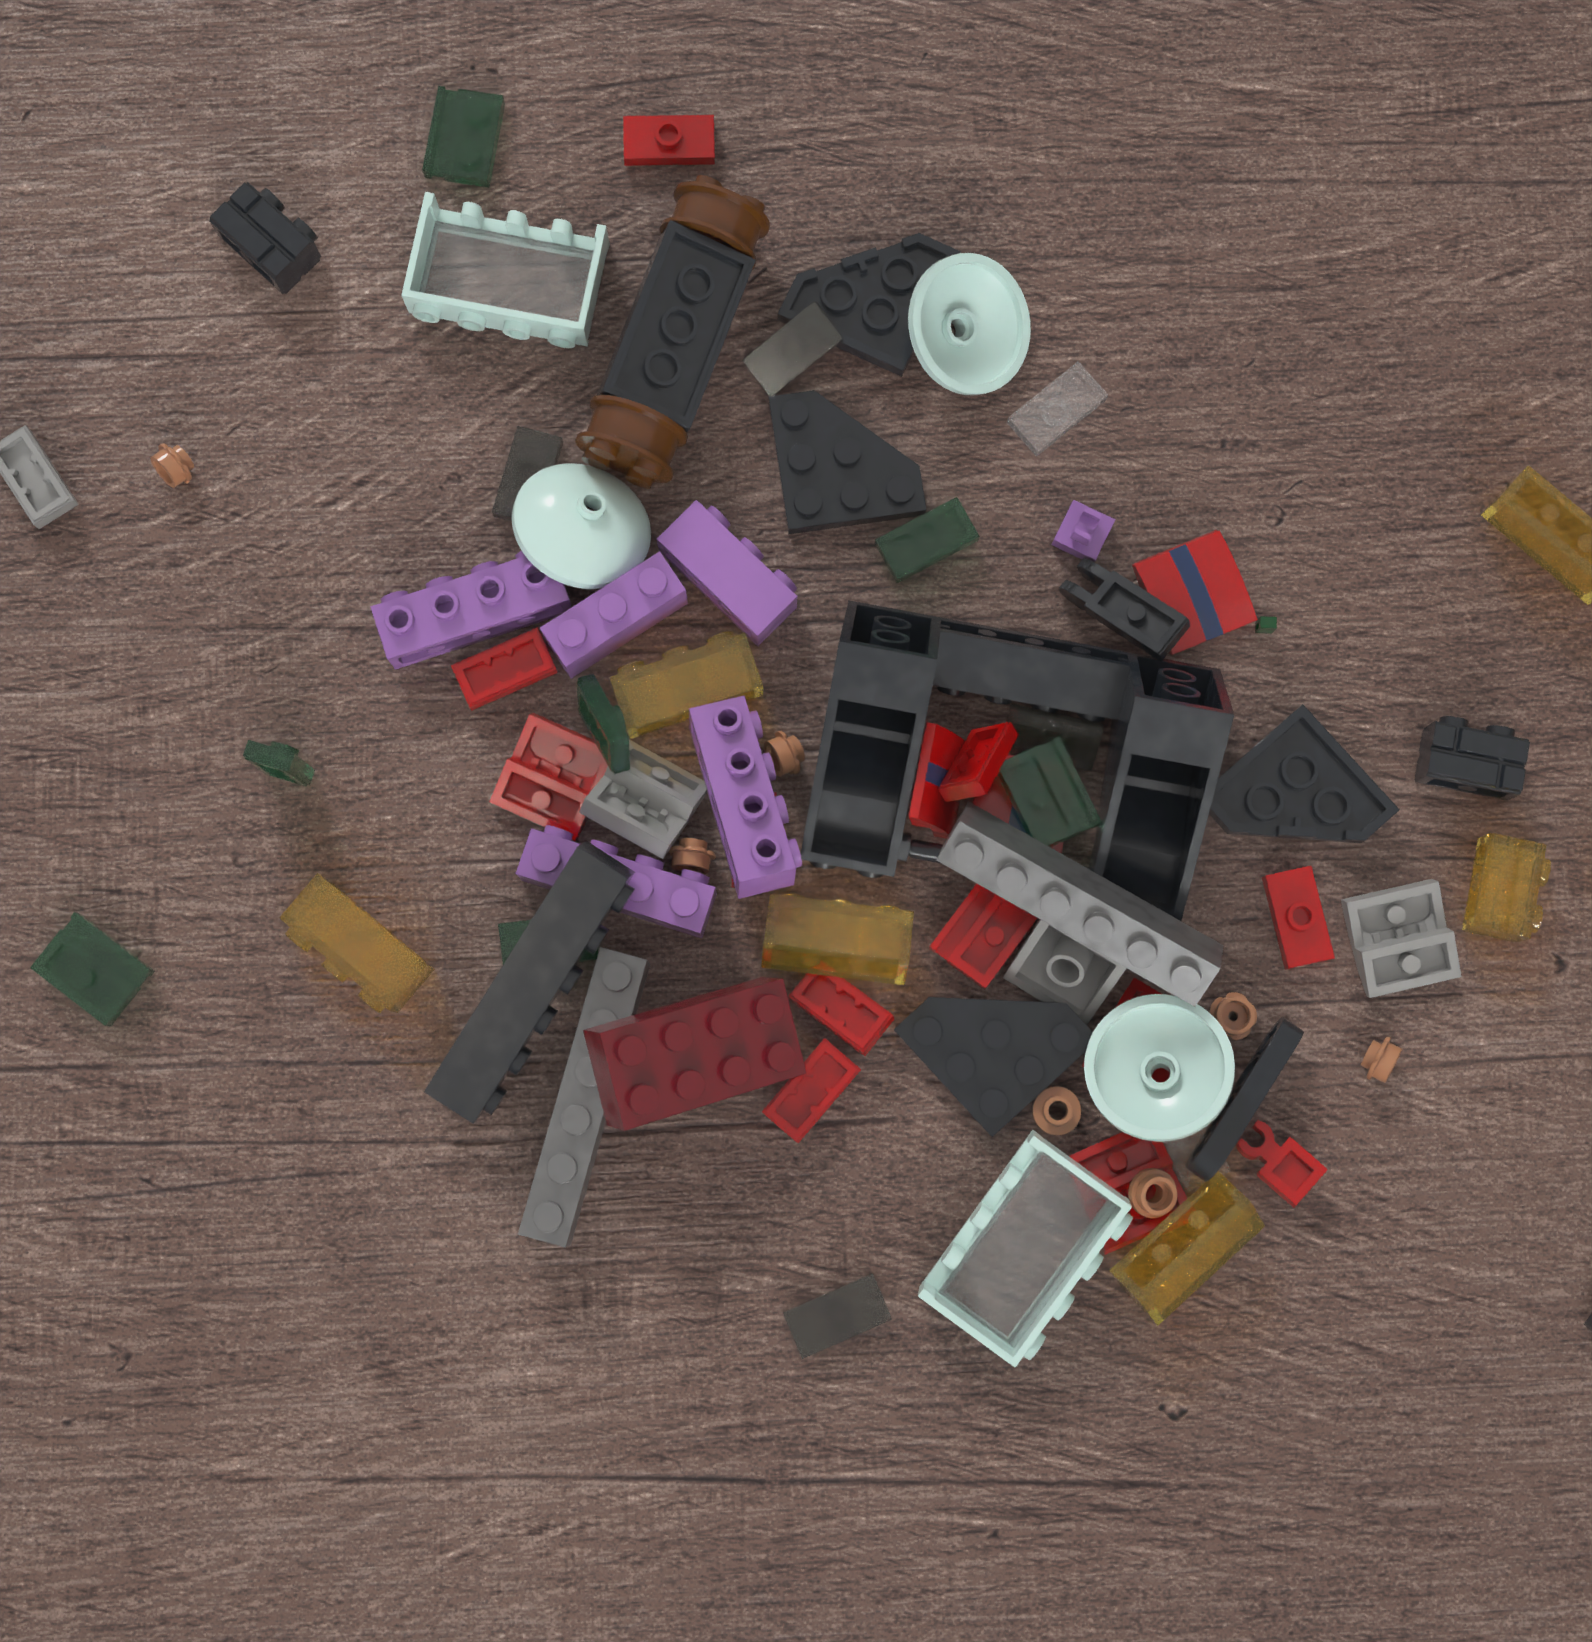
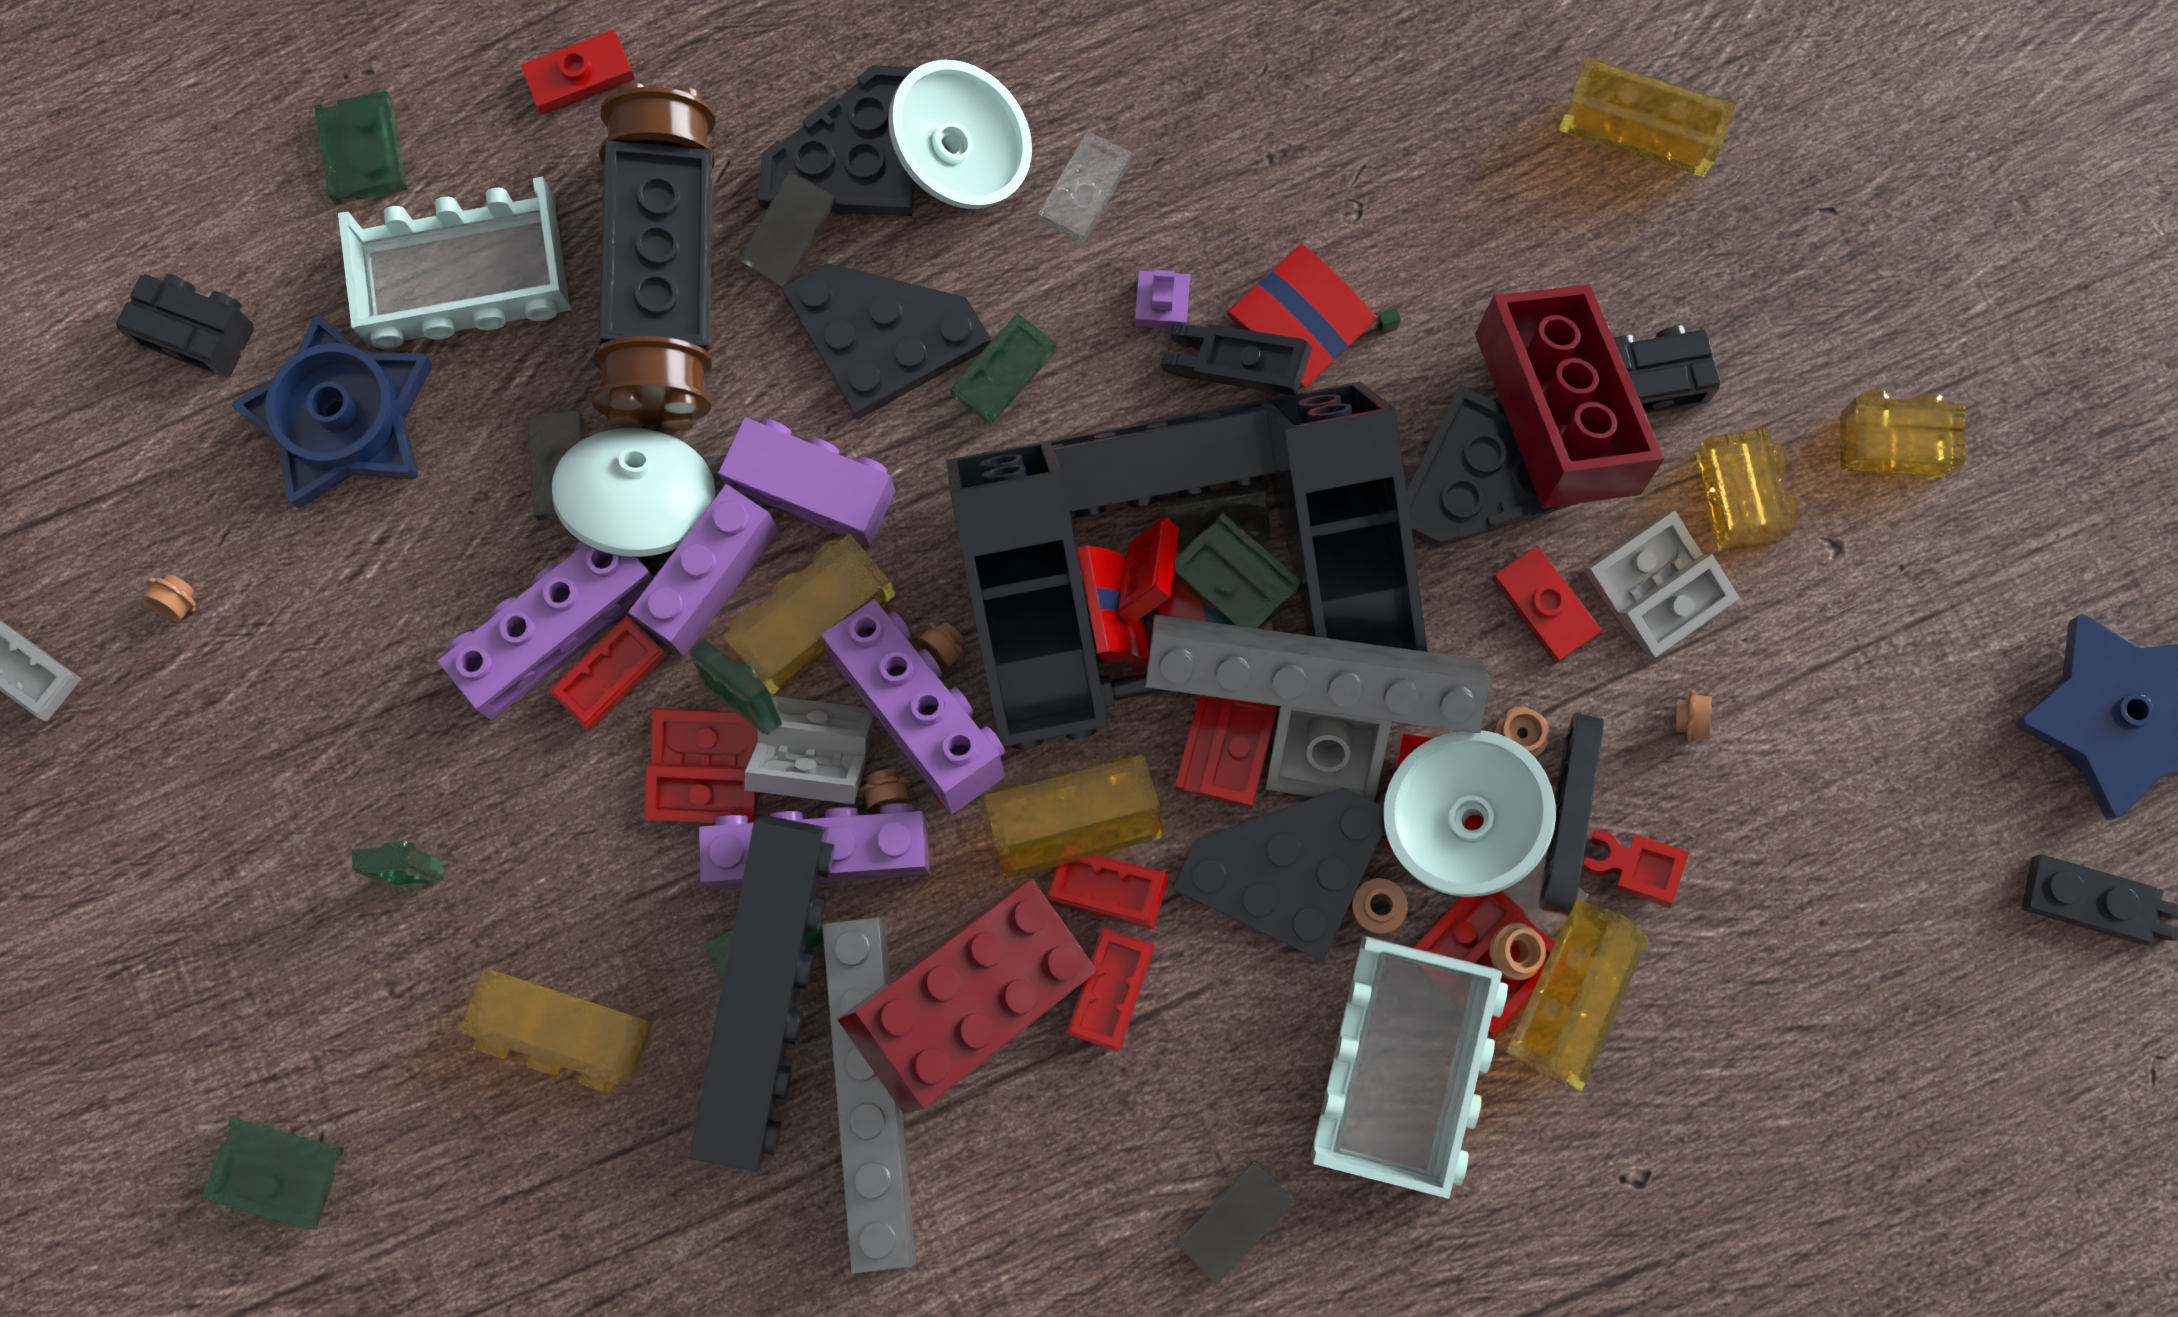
camera: 15 degrees left, 5 degrees down
(359, 330) = (338, 412): none -> dark blue plate
(1387, 752) = (1568, 396): none -> dark red brick

